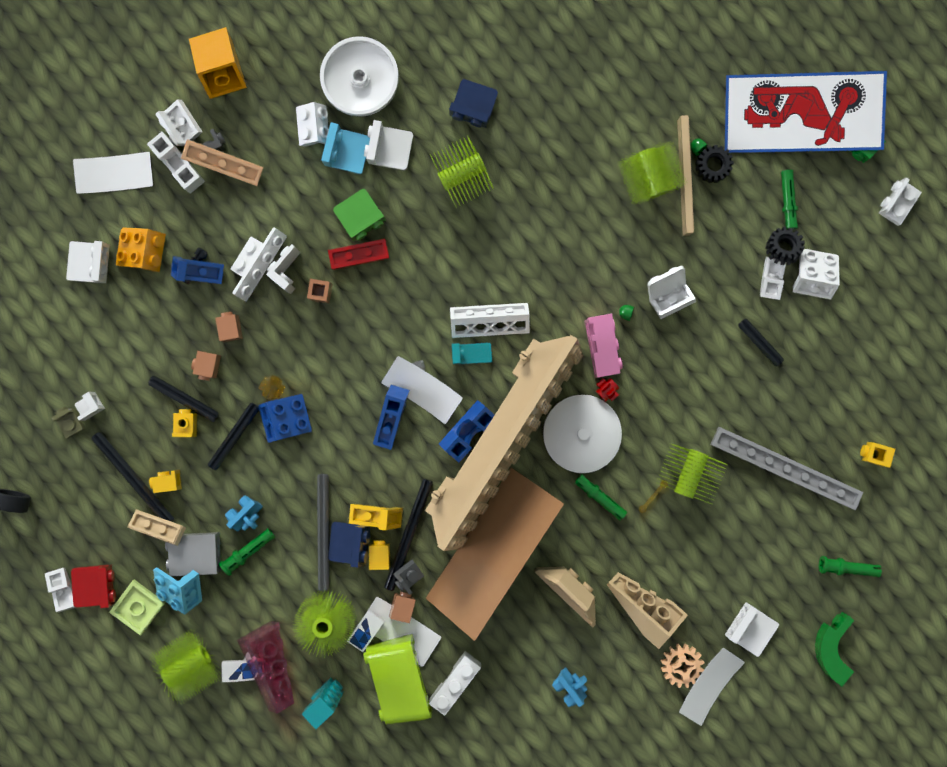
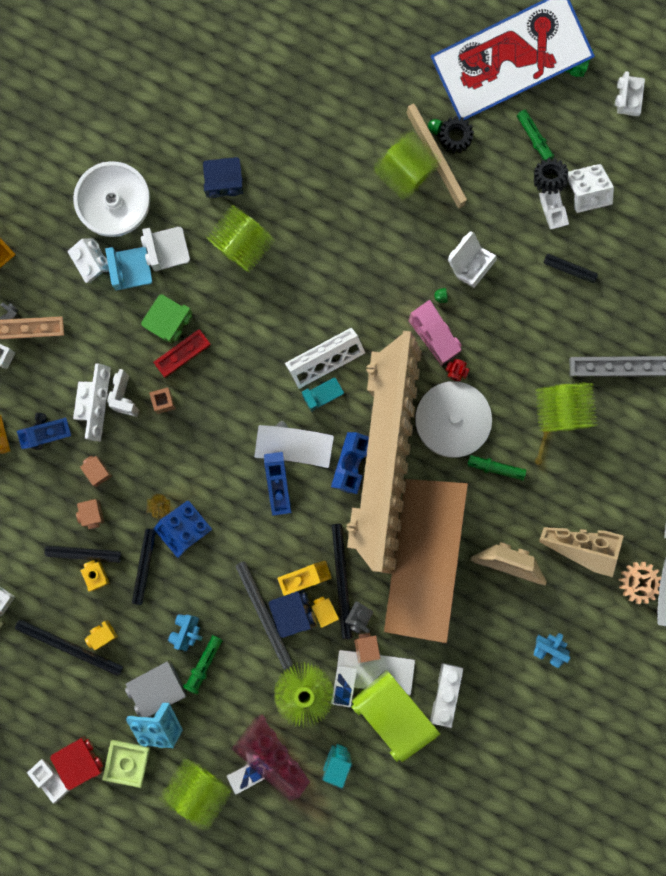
camera: 30 degrees left, 5 degrees down
(156, 527) = (111, 680): tan tile -> none

